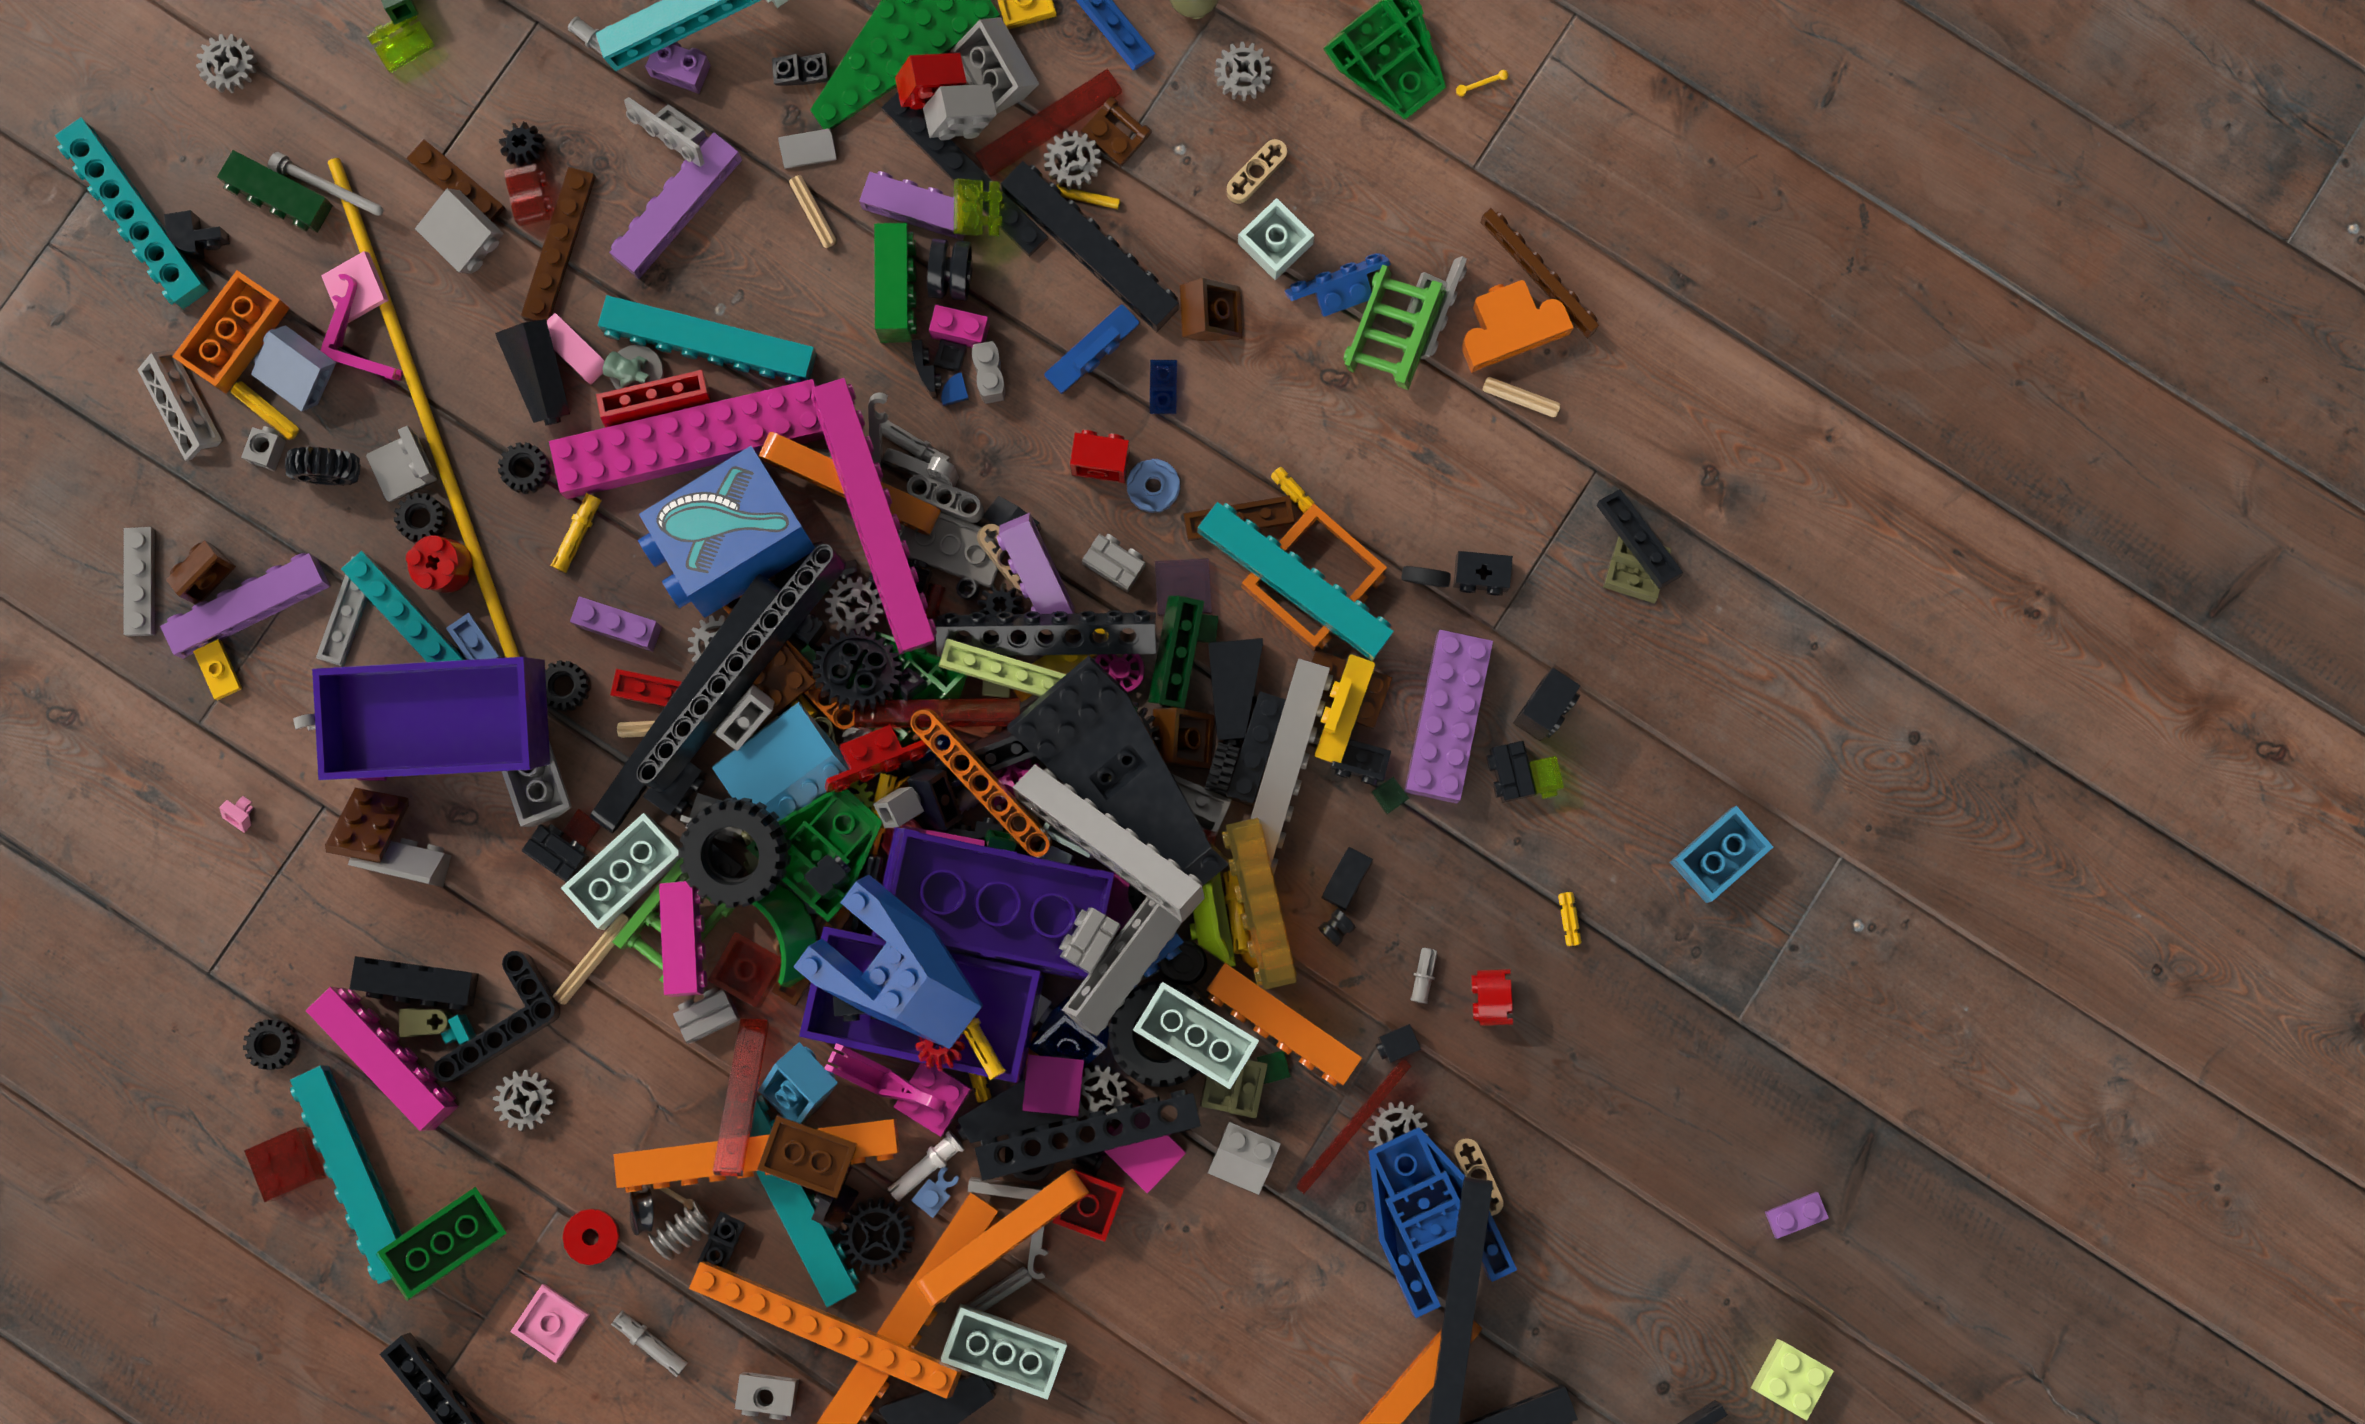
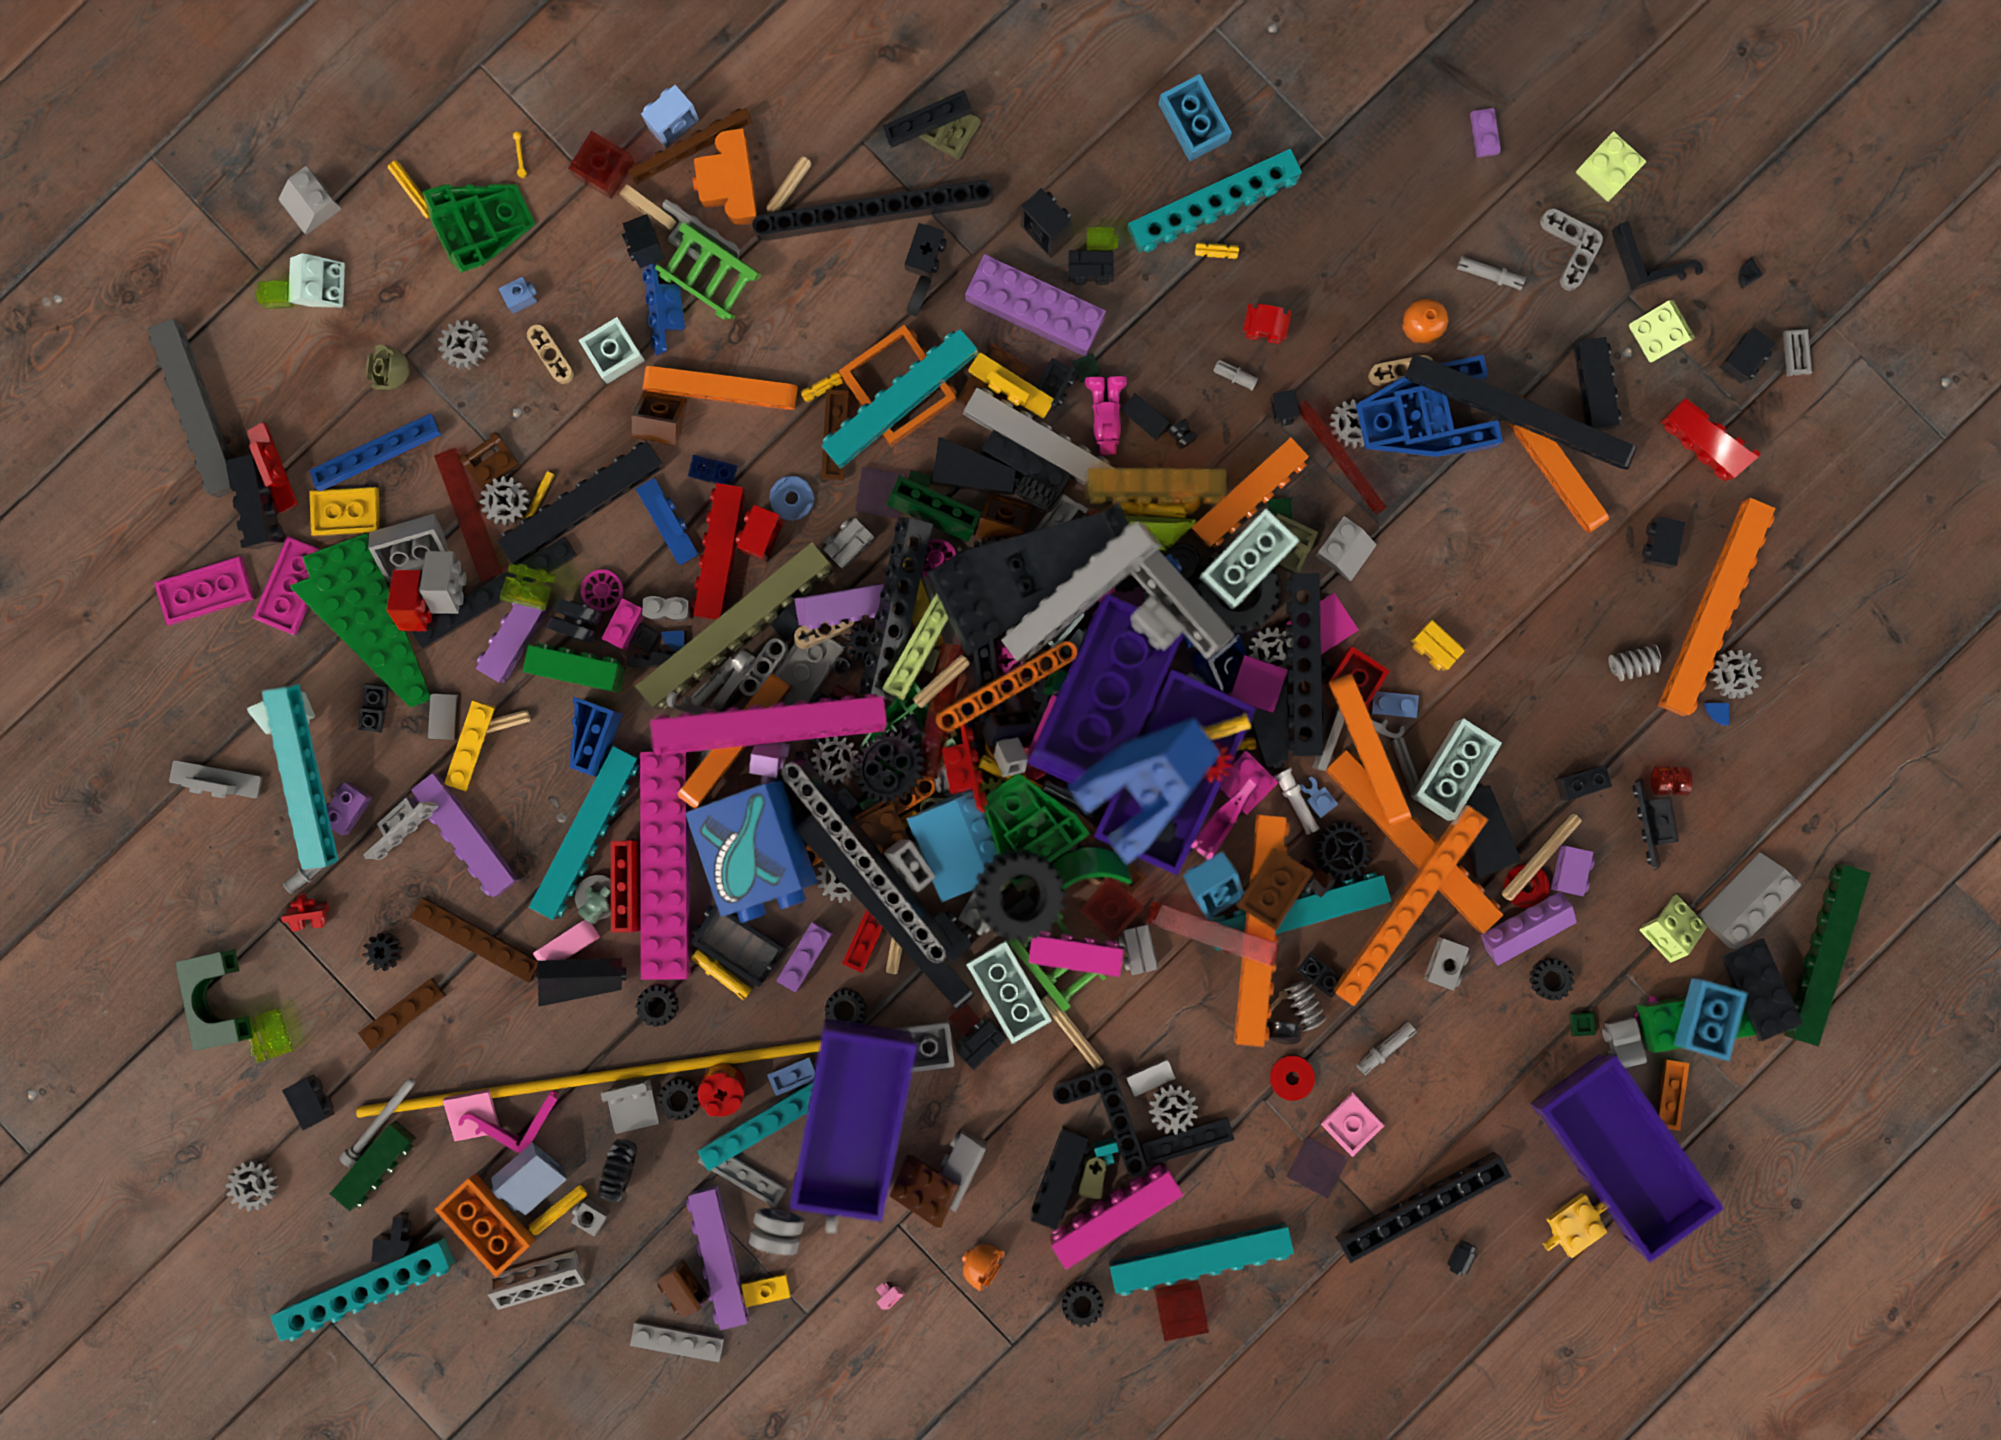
camera: 75 degrees left, 5 degrees up
(286, 664) = (776, 1231): none -> light grey wheel
(294, 914) = (981, 1265): none -> orange cylinder
(333, 103) = (308, 1101): none -> black brick
(441, 1244) = (1274, 1196): green brick -> none
(459, 231) = (445, 1018): light grey brick -> none
(489, 1129) = (1187, 1142): none -> black plate
(489, 1292) = (1317, 1167): none -> clear purple tile
(528, 194) = (426, 955): clear red brick -> none
(552, 47) = (305, 909): none -> red hips
(557, 1065) = (1150, 1077): none -> light grey slope
(611, 544) = (737, 945): none -> clear door
(780, 186) = (469, 745): none -> yellow plate
(821, 321) = (592, 735): none -> blue wedge
(828, 876) = (1055, 821): black brick -> none
(835, 527) = (768, 759): none -> lavender brick
(970, 705) = (941, 681): none -> tan axle
(984, 454) = (735, 627): none -> olive brick
(994, 293) = (602, 590): none -> dark pink wheel
(1065, 416) = (719, 551): none -> red brick
(1069, 1260) = (1395, 704): none -> medium blue plate
(1151, 1296) = (1437, 646): none -> yellow brick
(1263, 373) = (720, 387): none -> orange beam
(1316, 119) = (518, 294): none -> medium blue brick
(1338, 831) = (1106, 414): none -> dark pink piece
(1411, 244) = (642, 241): none -> black brick
(1454, 242) = (648, 207): none -> tan beam
(1490, 176) = (601, 164): none -> clear red brick
(1515, 514) = (862, 206): none -> black beam
(1545, 1192) = (1425, 321): none -> orange cylinder
(1566, 240) = (670, 116): none -> light blue brick
(1624, 1261) = (1492, 273): none -> light grey pin
(1692, 1361) = (1579, 240): none -> light grey beam
(1694, 972) = (1282, 163): none -> teal brick

